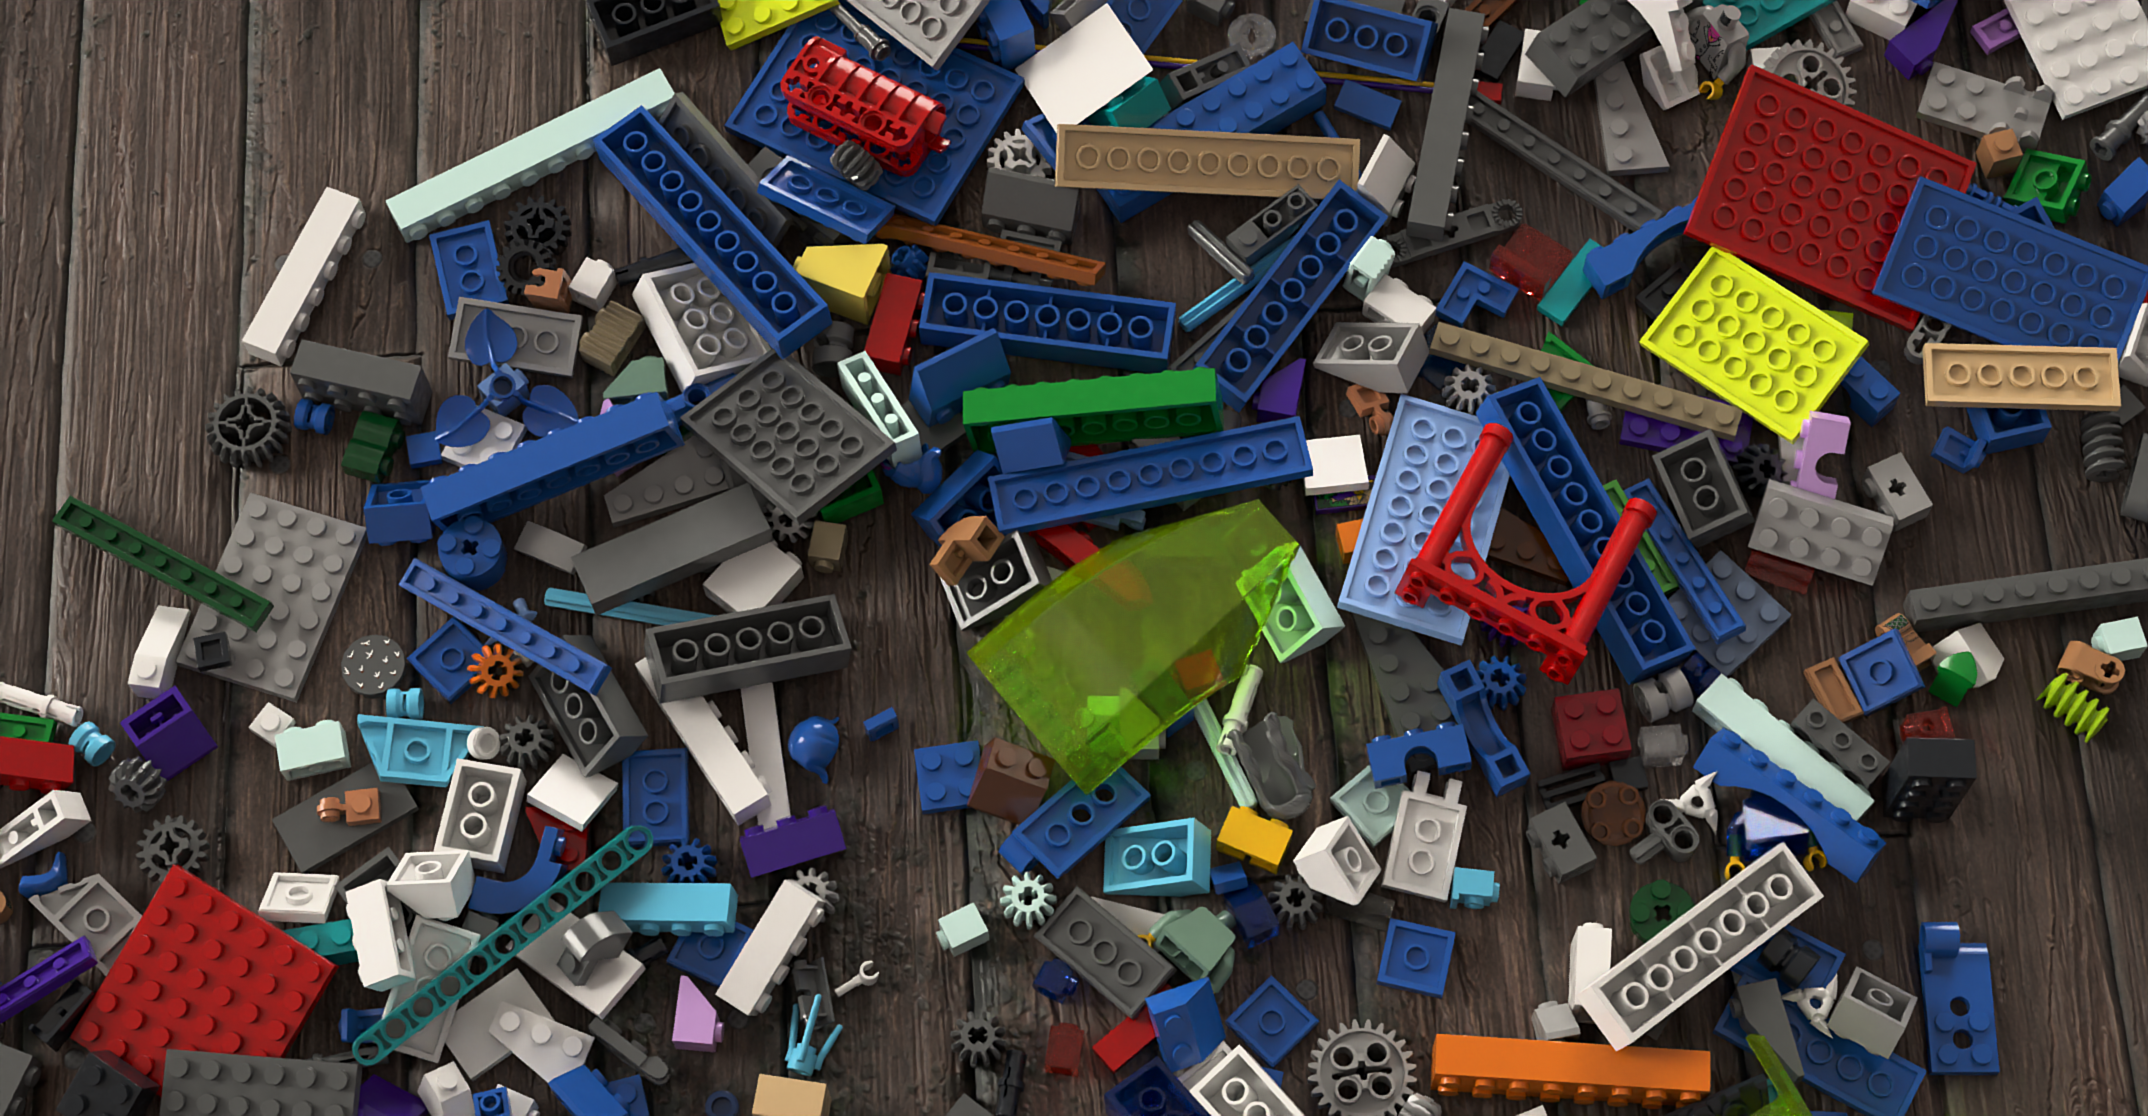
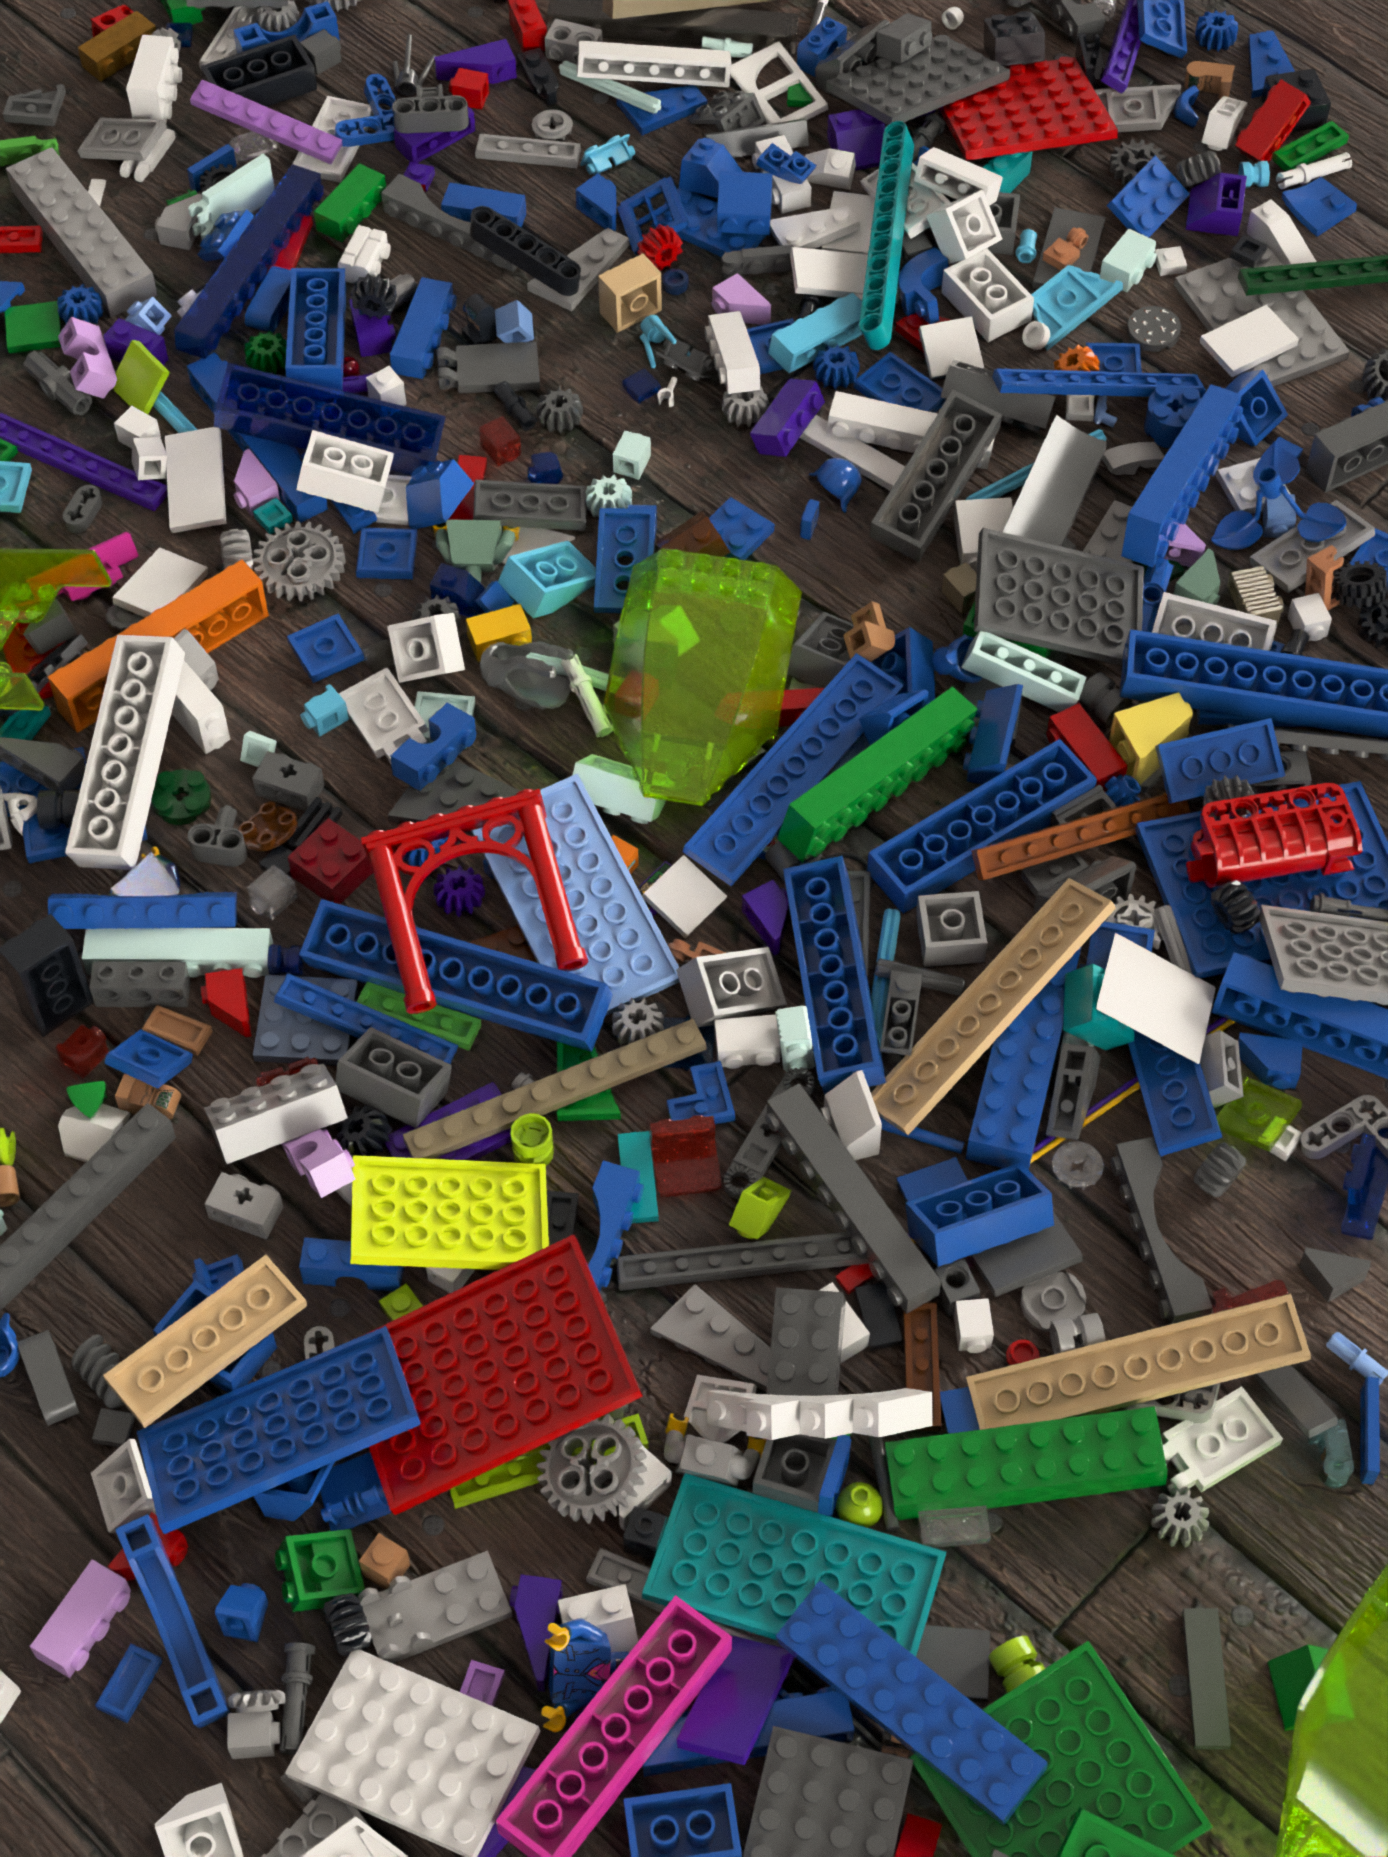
camera: 135 degrees right, 10 degrees down
(76, 664) = (1319, 205): none -> blue plate
(218, 795) = (1148, 198): none -> blue plate
(299, 897) = (1038, 188): white tile -> none
(324, 565) = (1249, 340): none -> white tile
(372, 447) = (1306, 419): dark green brick -> none
(375, 848) = (1026, 250): none -> medium azure pin
(405, 703) = (1107, 319): medium azure wheel -> none
(533, 750) = (1011, 352): dark grey gear -> none
(590, 940) = (835, 266): dark grey brick -> none
(874, 1009) = (641, 385): none -> clear blue tile
(951, 82) = (1235, 907): none -> black gear
(1010, 117) = (1172, 937): none -> light grey axle
(1161, 261) = (951, 929): none -> light grey brick
(1469, 705) = (374, 785): blue arch -> none
(1513, 179) = (759, 1208): none -> lime slope
(1562, 896) = (255, 748): none -> light aqua tile
(1637, 356) = (532, 1139): none -> lime wheel
(1666, 693) = (295, 924): light grey wheel -> none
(1708, 809) = (216, 879): white piece -> none
(1774, 676) = (228, 999): none -> red slope
(1801, 26) = (644, 1533): none -> black brick
(2060, 129) = (347, 1624): none -> black gear

